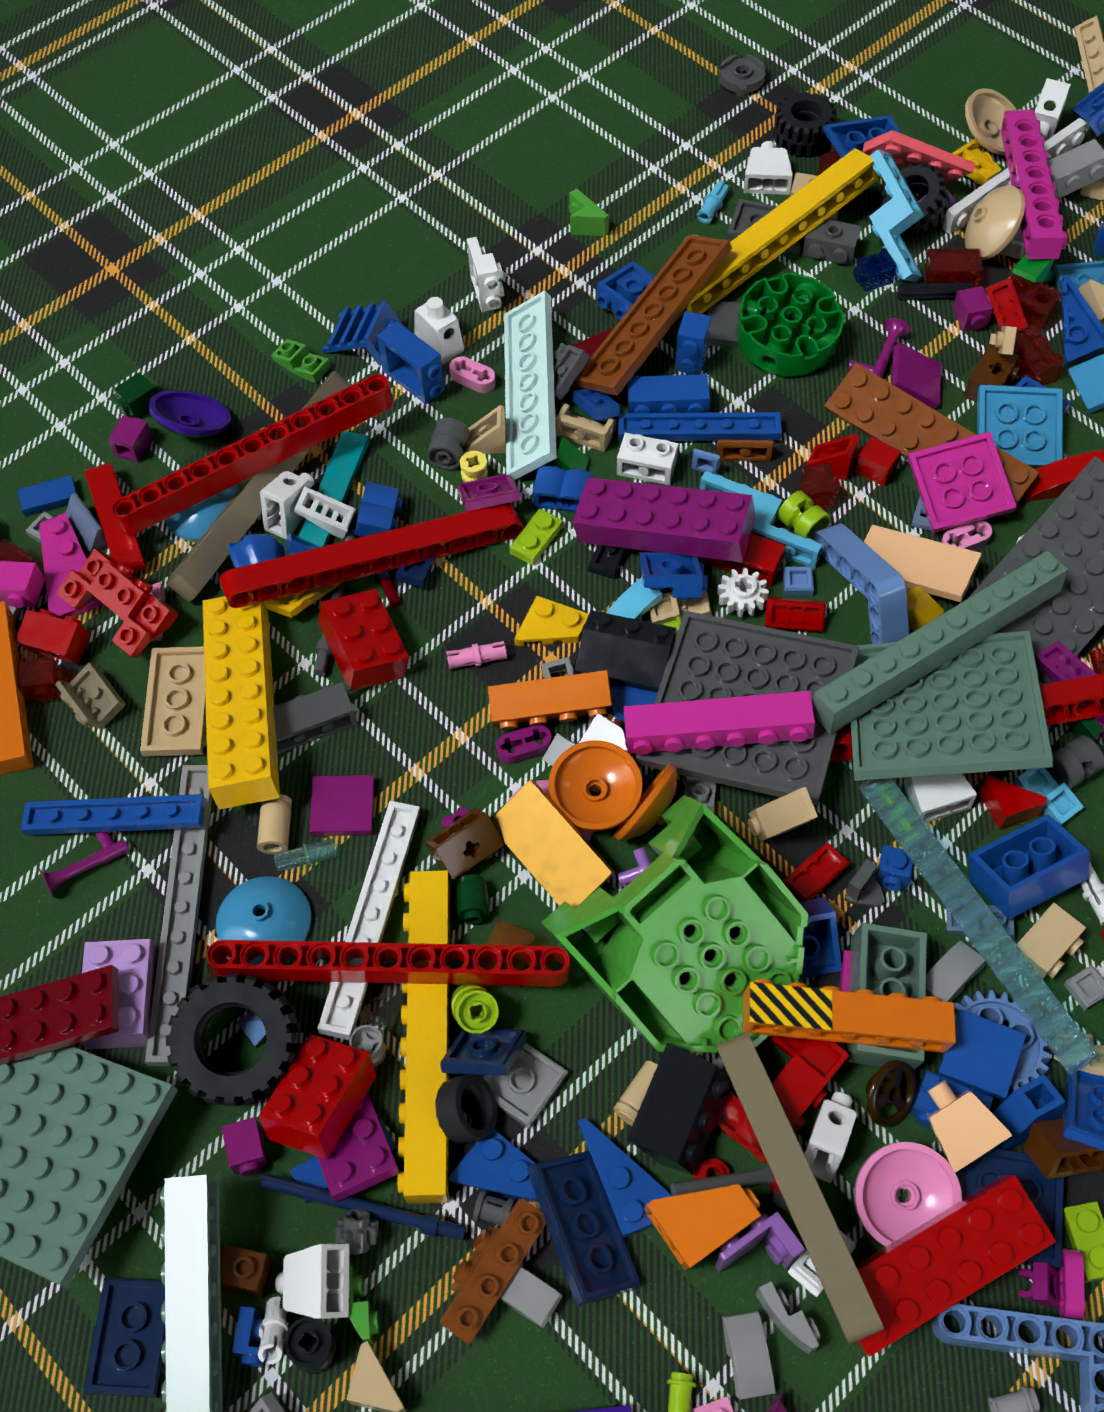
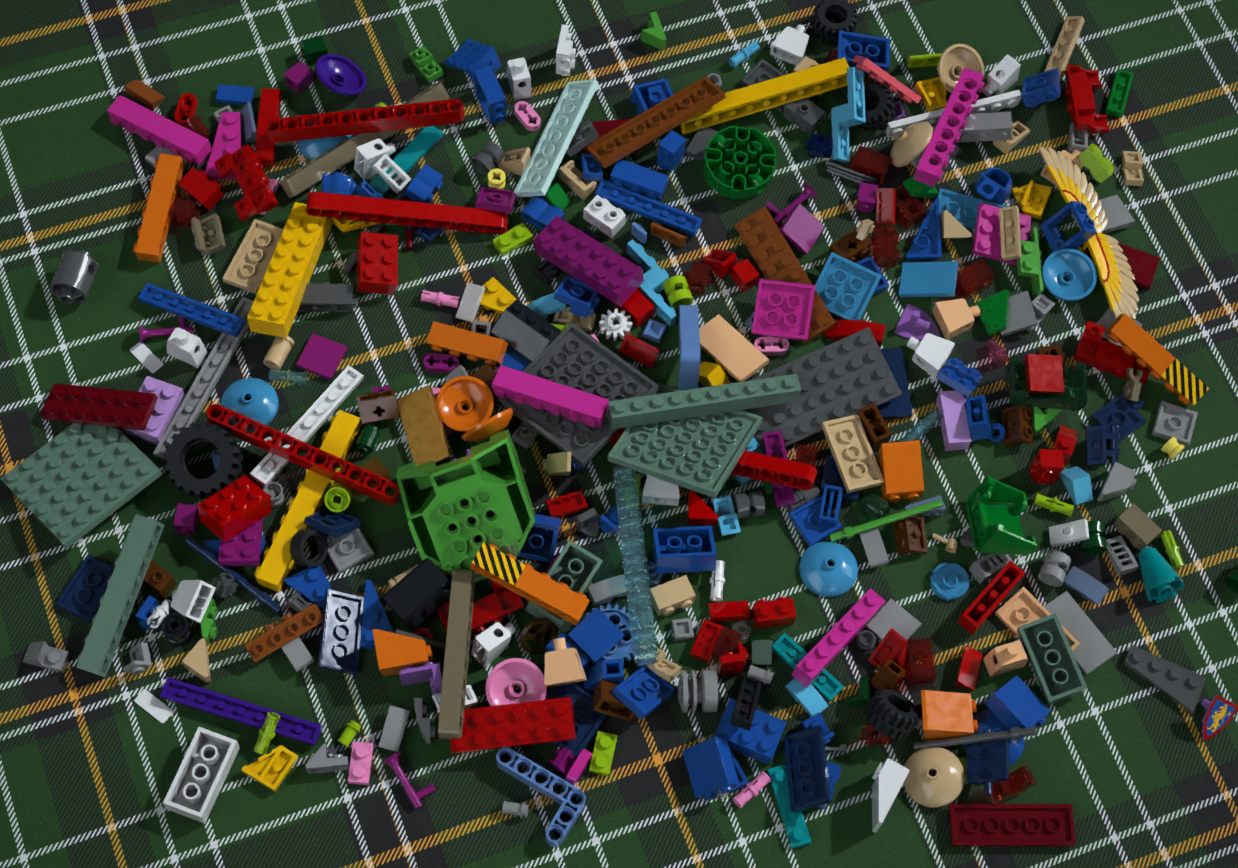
camera: 15 degrees right, 5 degrees up
(70, 915) = (146, 357): none -> white sticker
(124, 874) = (184, 345): none -> white torso
(523, 642) = (470, 302): none -> white slope
(941, 129) = (922, 60): none -> lime slope

